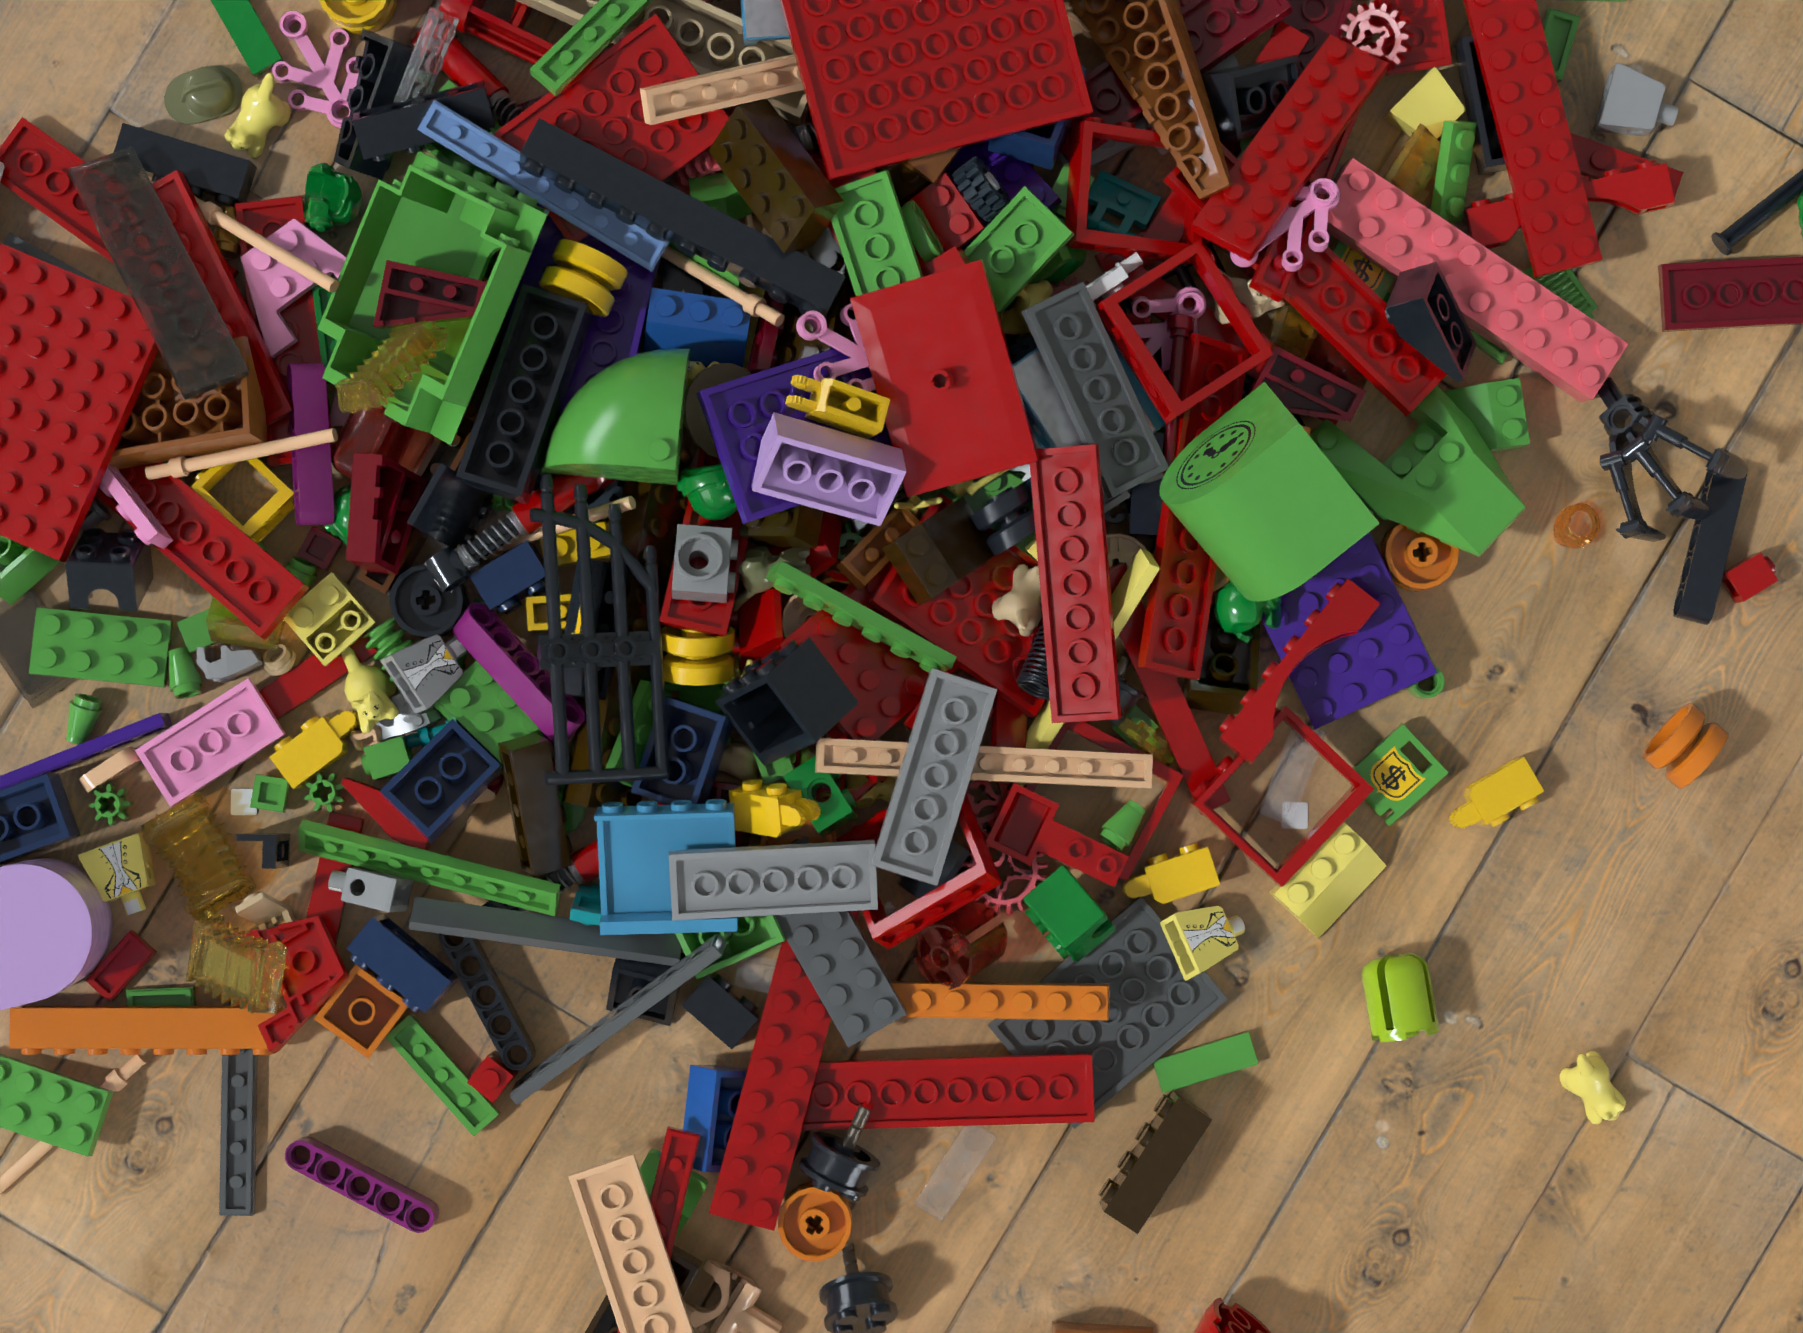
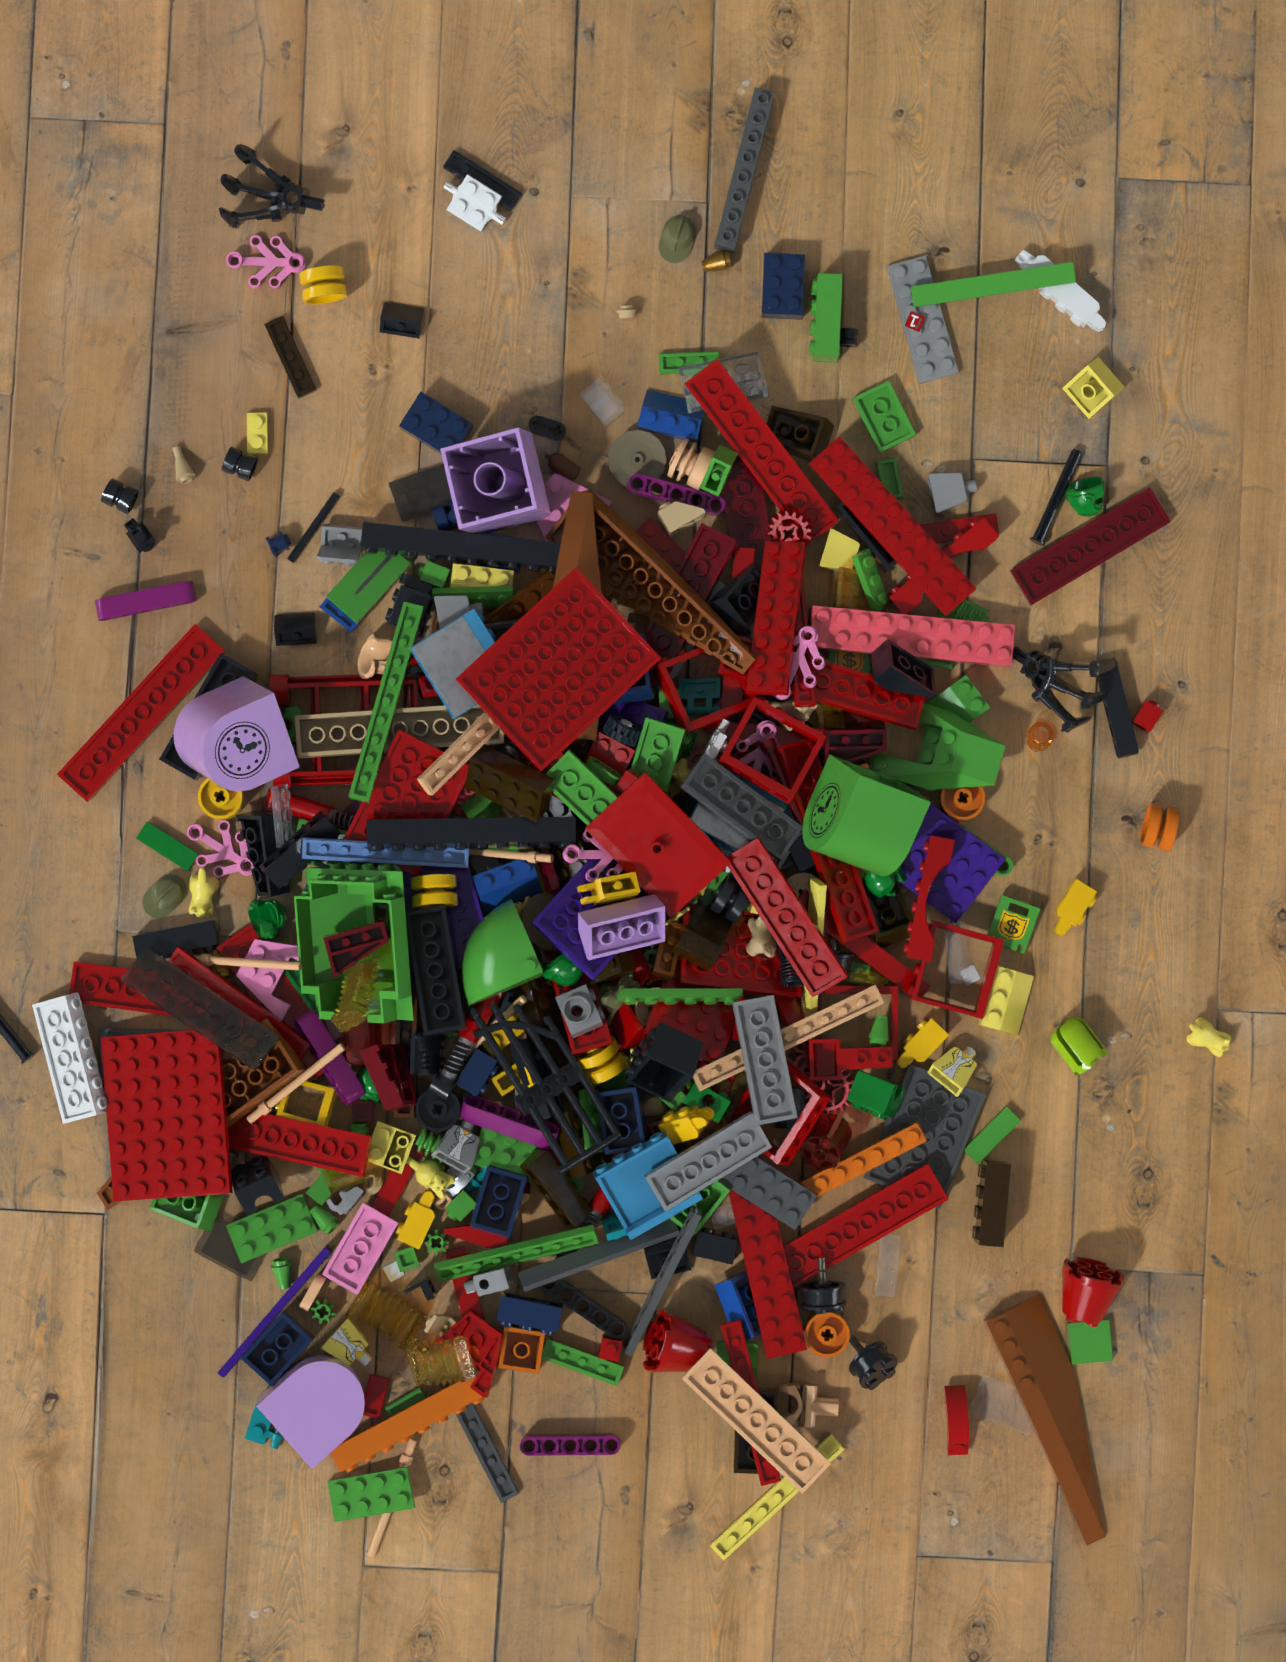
camera: 35 degrees left, 0 degrees up
(133, 508) = (252, 1143): bright pink plate -> none
(585, 1119) = (673, 1344): none -> red cone

